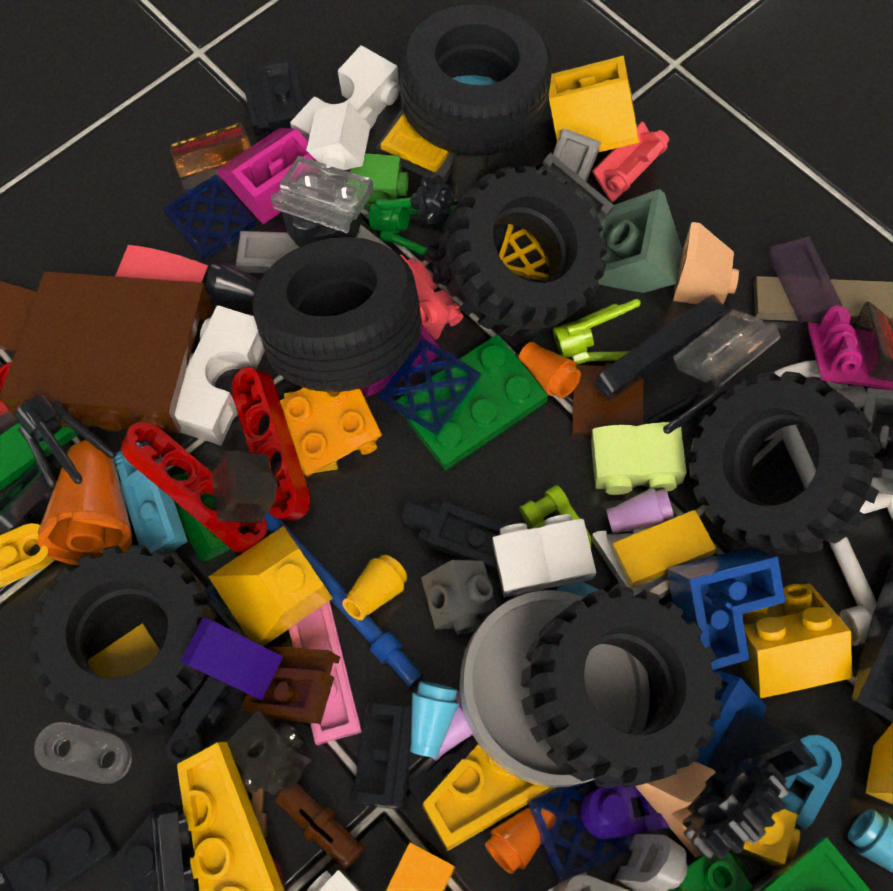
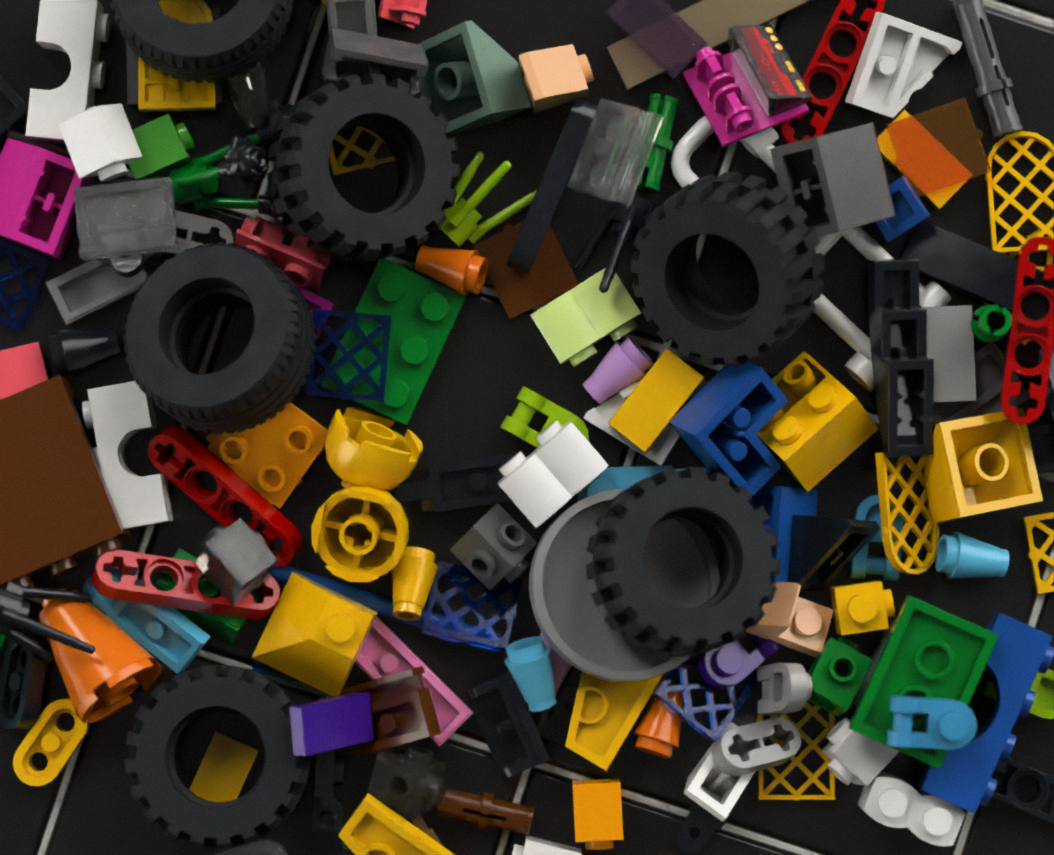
camera: 30 degrees left, 20 degrees up
(356, 518) = (360, 533): none -> yellow cylinder
(395, 658) = (462, 635): none -> clear blue window
(400, 466) = (368, 452): none -> yellow cylinder
(735, 807) = (826, 611): black gear -> none
(767, 360) = (662, 145): none -> green pin
(828, 759) = (887, 516): none -> yellow window

